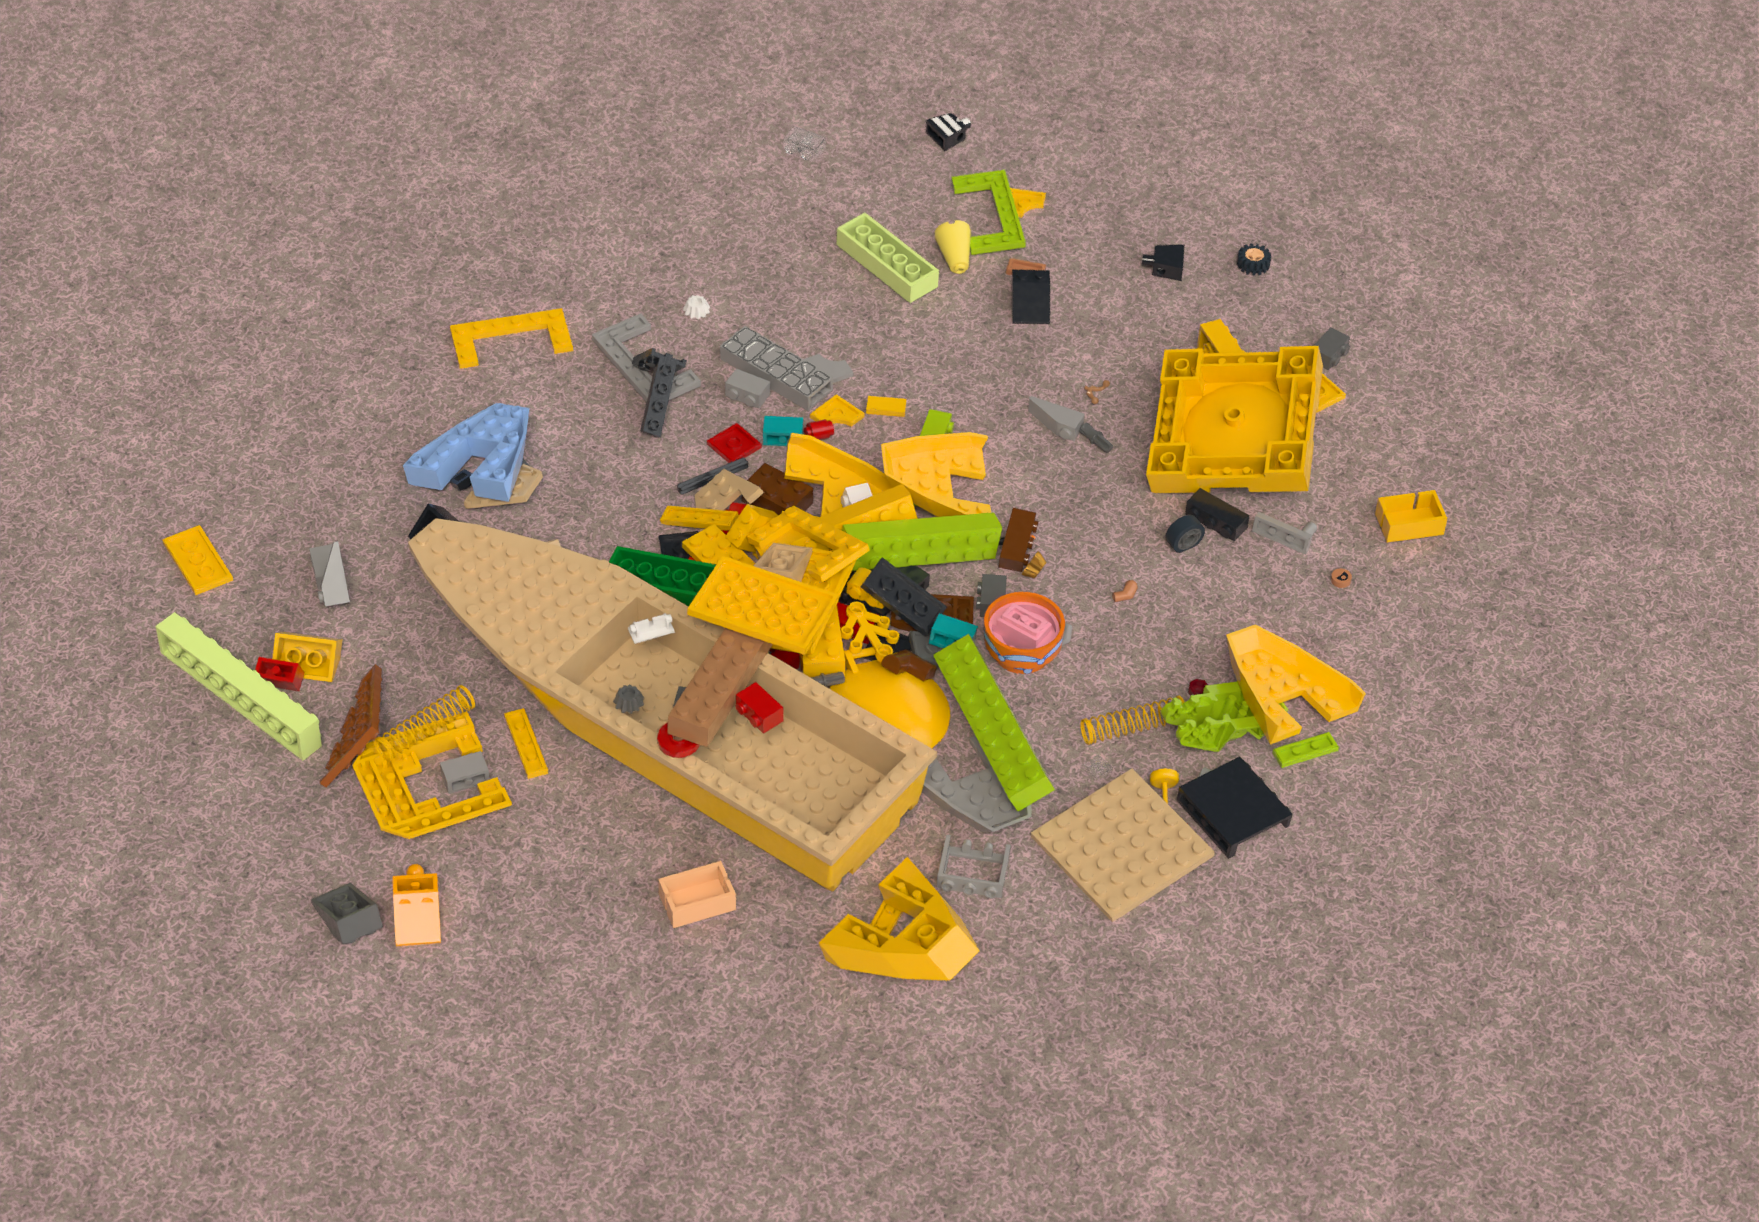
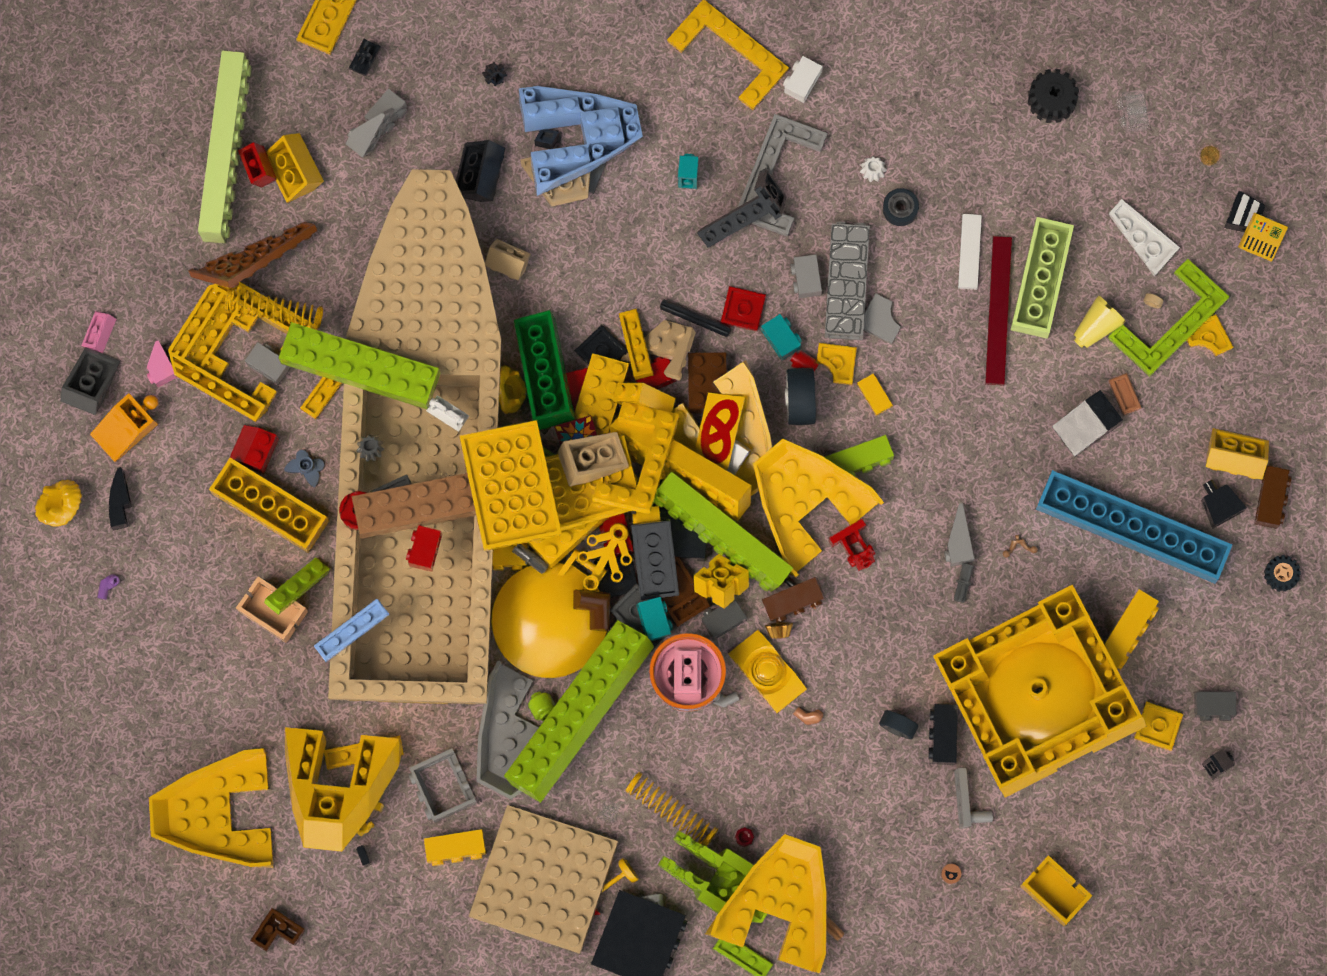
camera: 60 degrees right, 30 degrees up
(264, 553) = (365, 57): none -> black hips
(305, 882) = (99, 331): none -> bright pink slope
(371, 479) = (494, 74): none -> black gear
(387, 850) = (159, 366): none -> bright pink slope
(439, 999) = (58, 503): none -> yellow piece
(482, 954) = (119, 501): none -> black slope
(532, 826) = (254, 448): none -> red slope
(548, 661) = (359, 365): none -> lime brick
(551, 1013) = (107, 584): none -> medium lavender arm
(580, 304) = (803, 79): none -> white brick
(585, 800) = (305, 465): none -> sand blue animal
(587, 404) = (688, 171): none -> teal brick
(597, 841) = (269, 505): none -> yellow brick
(693, 857) = (296, 586): none -> lime plate
(746, 306) = (896, 216): none -> wheel
(747, 175) = (1047, 105): none -> black wheel
(784, 804) = (351, 630): none -> light blue tile
(822, 291) = (969, 251): none -> white tile
(825, 488) = (719, 428): none -> sticker
(839, 1067) = (197, 811): none -> yellow piece
(850, 432) = (800, 396): none -> black wheel
(880, 128) = (1209, 155): none -> clear yellow tile
(888, 301) = (998, 310): none -> dark red tile
(916, 191) = (1147, 241): none -> white wing
(961, 570) = (721, 581): none -> yellow brick
(962, 756) = (541, 705): none -> lime head
(966, 212) = (1153, 301): none -> tan tile
(975, 127) = (1262, 237): none -> yellow tile
(990, 961) = (363, 856): none -> black tile
(1001, 1068) = (276, 925): none -> reddish brown brick
(1016, 483) = (850, 536): none -> red tile
(1039, 890) = (455, 847): none -> yellow brick
(1071, 595) = (767, 671): none -> yellow slope
(1136, 232) = (1237, 454): none -> yellow slope
(1140, 314) = (1134, 527): none -> dark azure brick
(1187, 232) = (1272, 497): none -> reddish brown brick
(1383, 365) = (1218, 763): none -> black slope

